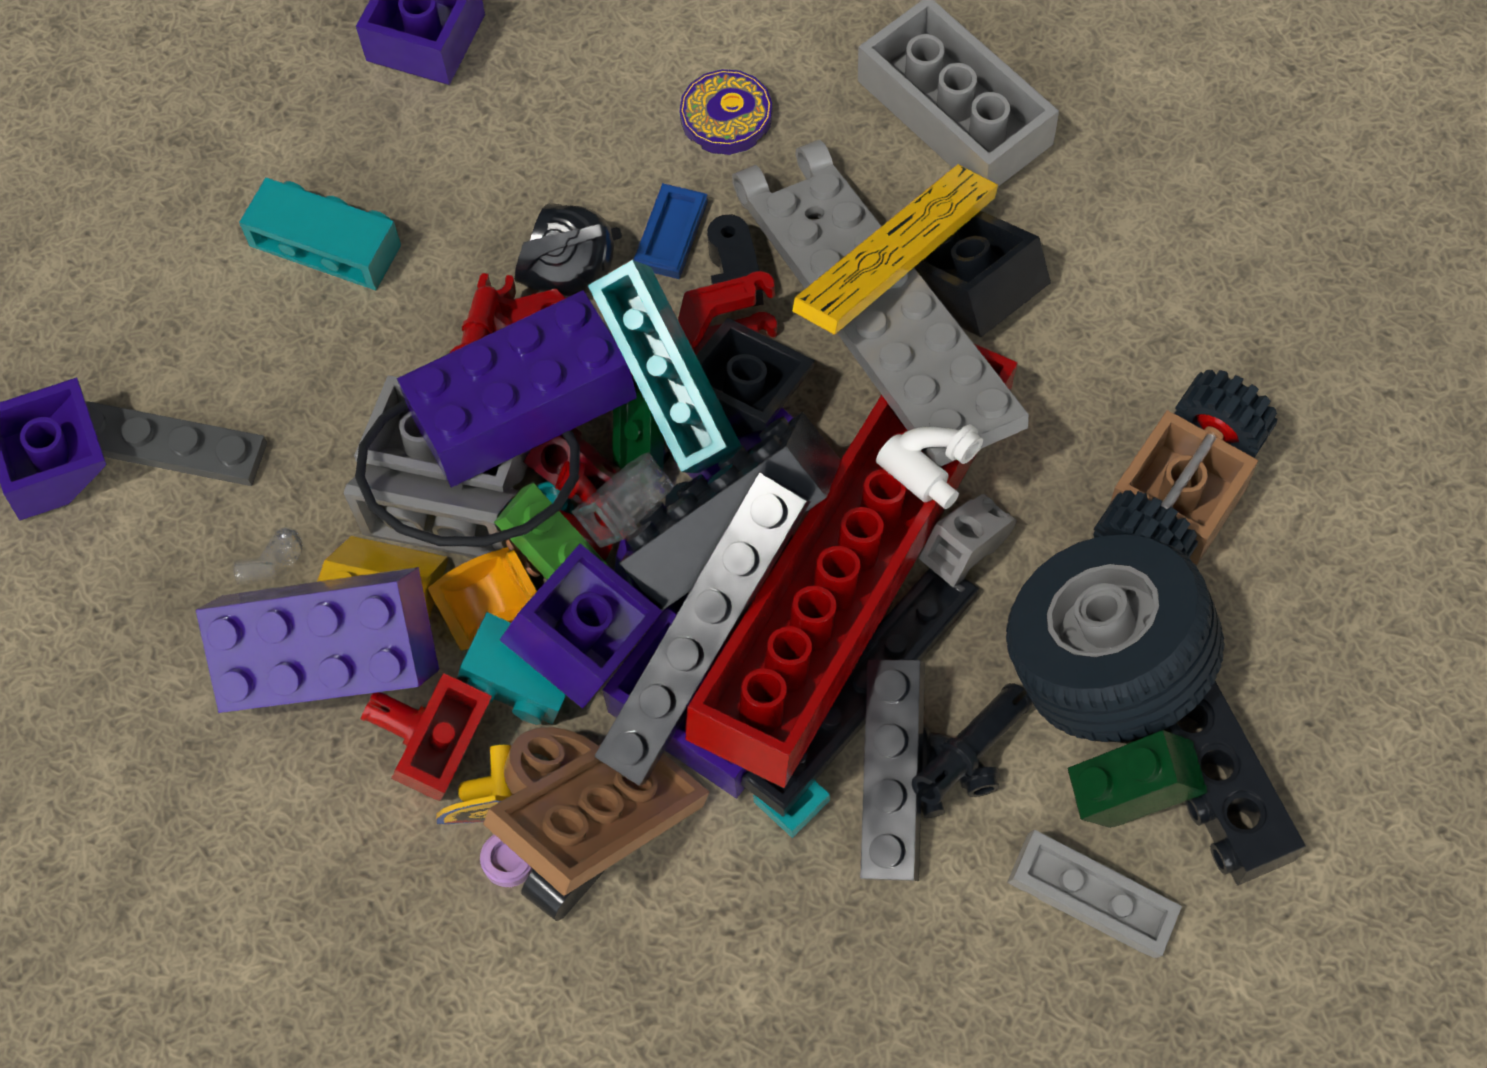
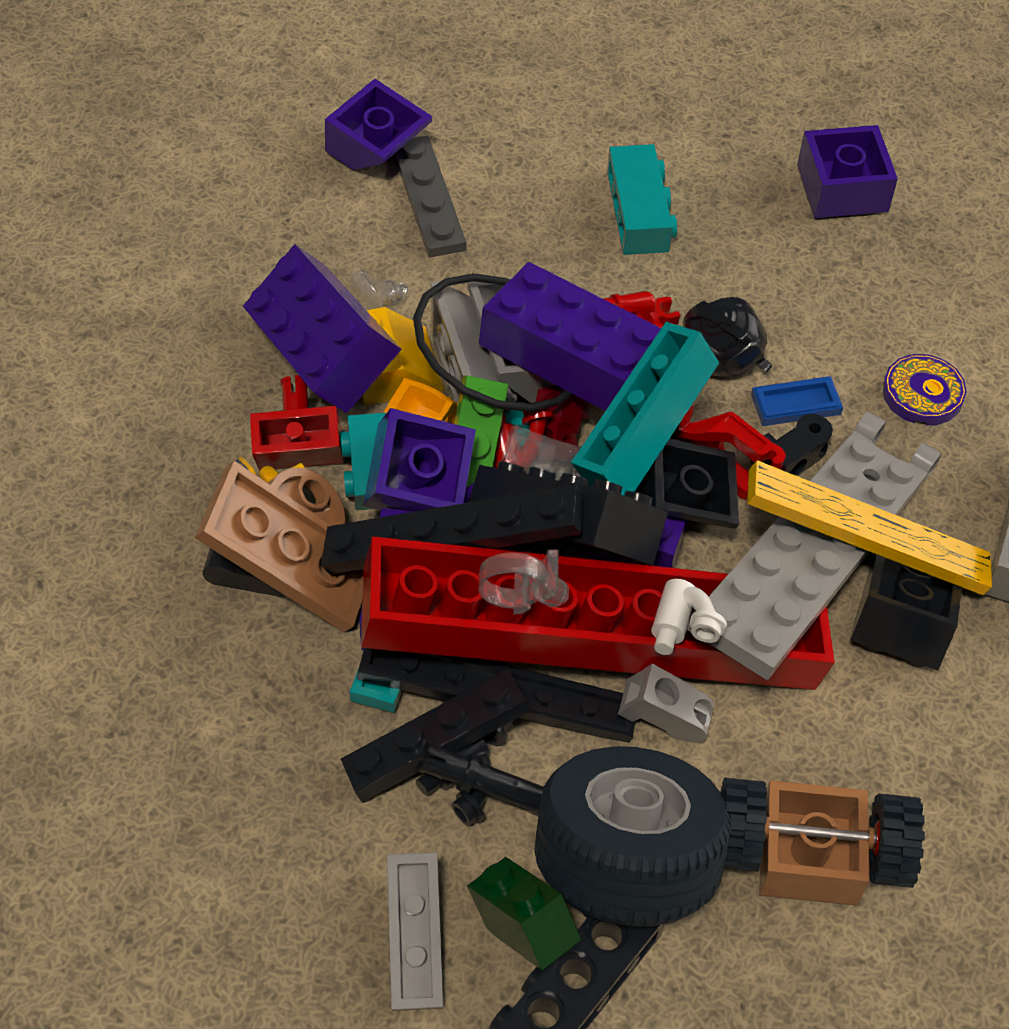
camera: 55 degrees right, 10 degrees down
(827, 582) = (533, 581): none -> clear piece

